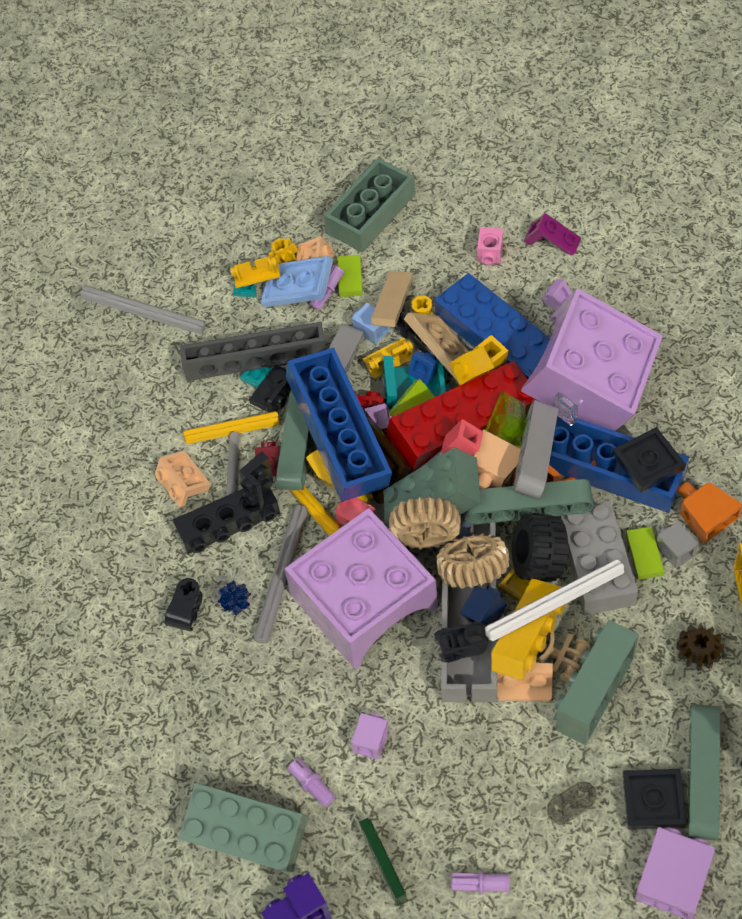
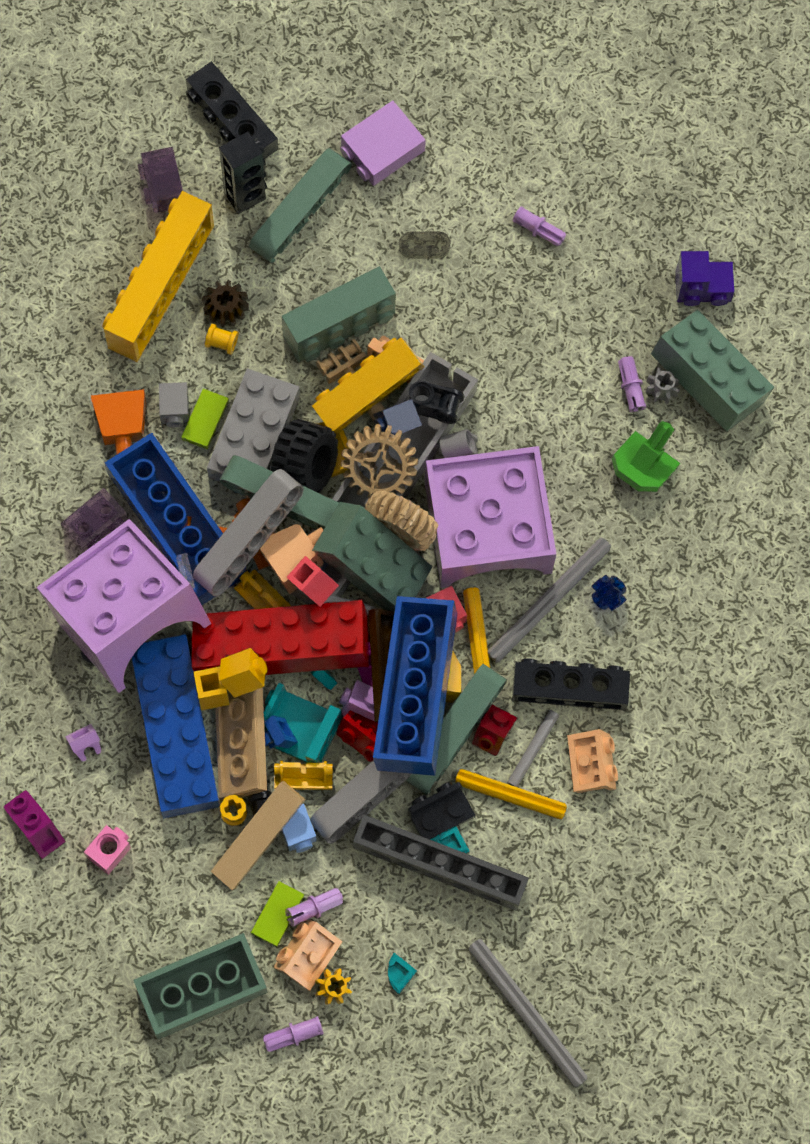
camera: 160 degrees left, 15 degrees up
(183, 608) = (662, 611): black piece -> none
(256, 480) = (529, 674): black bracket -> none
(263, 270) = (380, 968): yellow hinge -> none
(263, 716) = (644, 462): none -> bright green piece
(276, 790) = (659, 392): none -> light grey gear
(292, 219) = (293, 1034): none -> lavender axle
(298, 282) = (344, 928): light blue tile -> none
(370, 735) = (558, 391): lavender brick -> none
(383, 861) = (609, 283): dark green tile -> none
(415, 395) = (319, 694): lime tile -> none
(419, 635) = (459, 444): none -> light grey piece
(508, 419) = (249, 592): clear neon green slope -> none
(554, 600) = (331, 385): white axle -> none
(649, 459) = (147, 473): black plate -> none
(654, 799) = (356, 208): black plate -> none
(669, 420) = (94, 520): none -> clear purple brick
(680, 617) = (221, 339): none -> yellow bush

